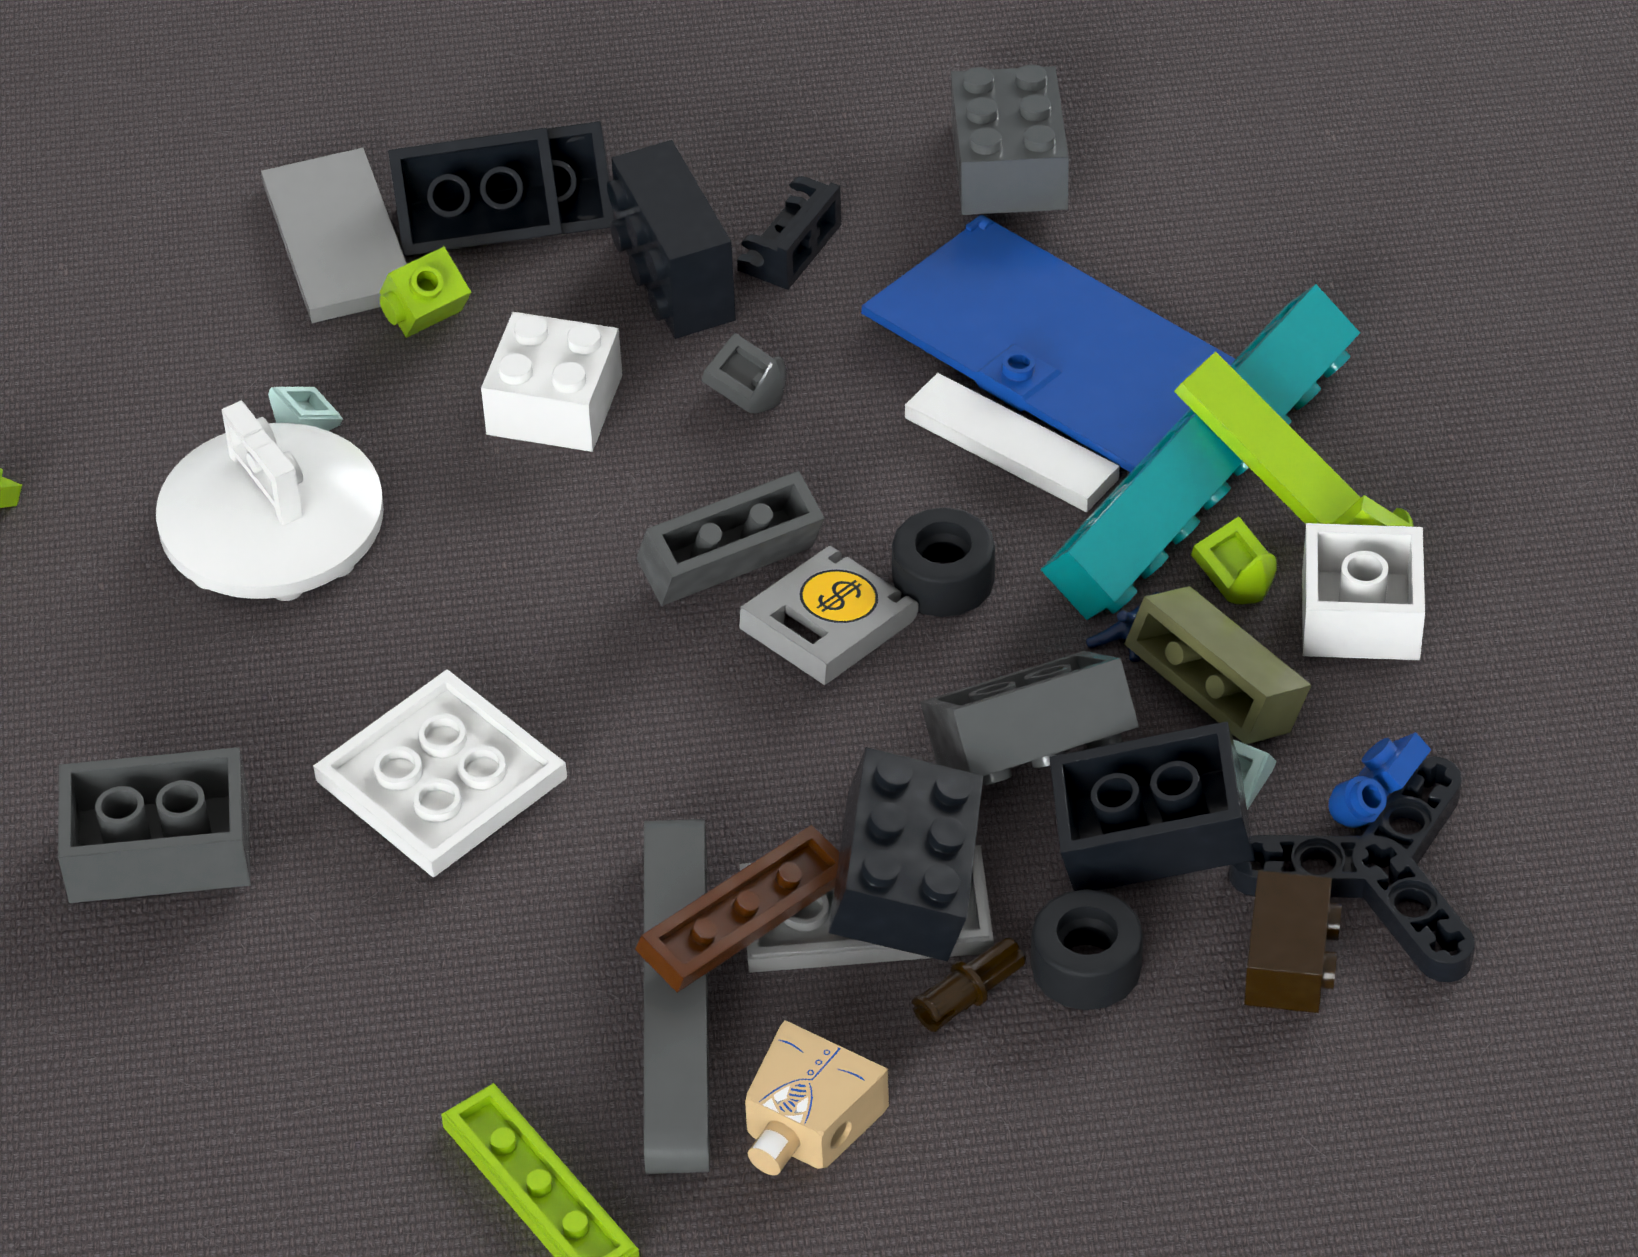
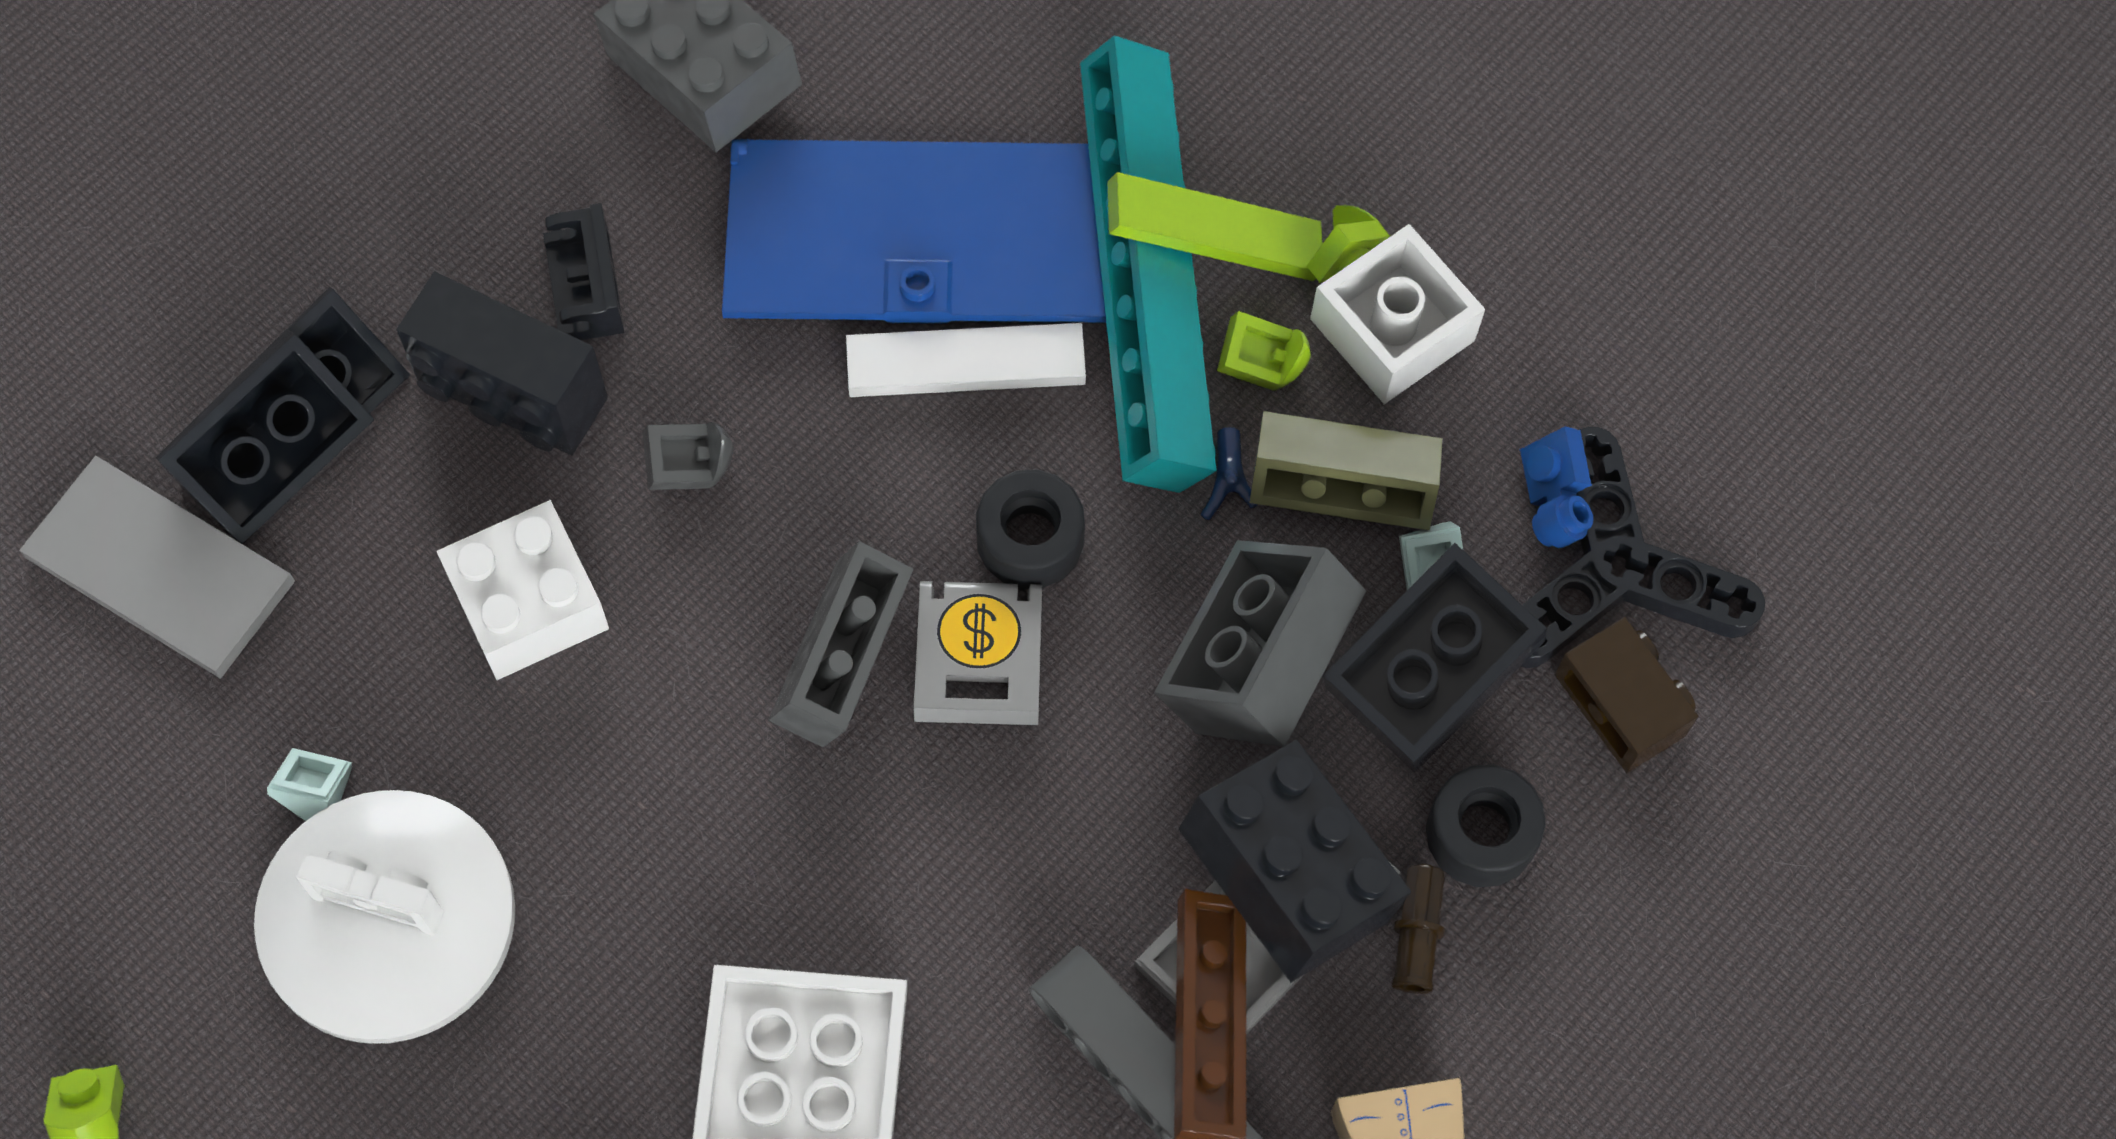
camera: 45 degrees left, 20 degrees up
(423, 292) = (316, 580): lime brick -> none

